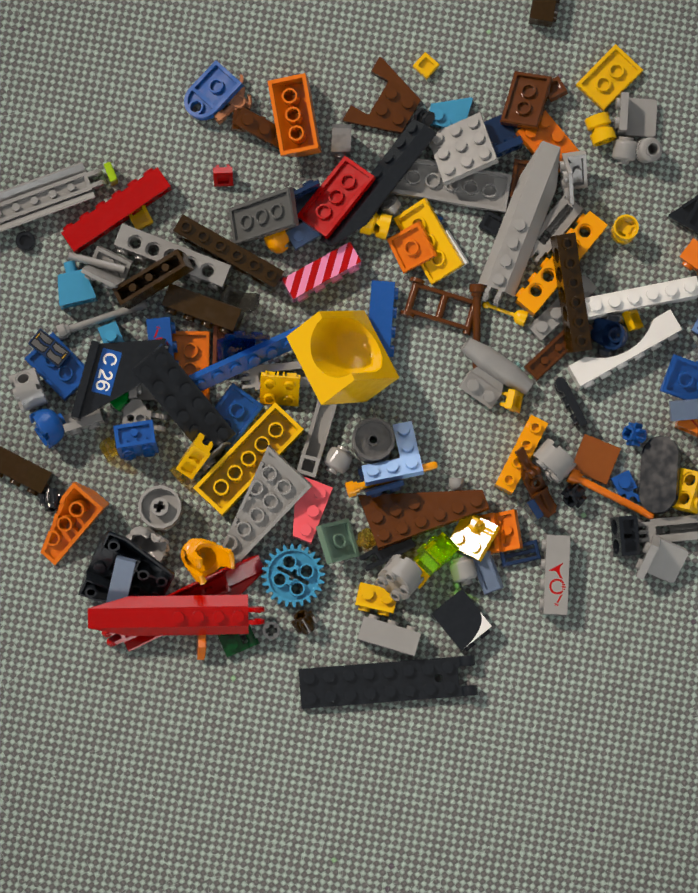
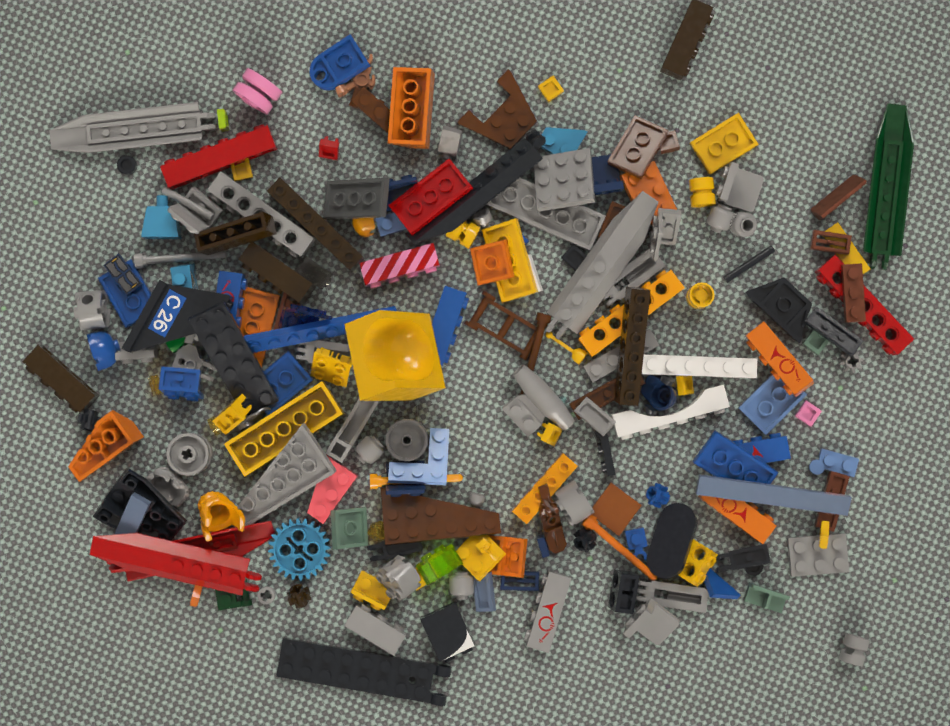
camera: 20 degrees right, 5 degrees up
(139, 136) = (258, 89): none -> bright pink wheel
(552, 371) = (595, 416): none -> light grey tile
(664, 188) = (748, 264): none -> black bar

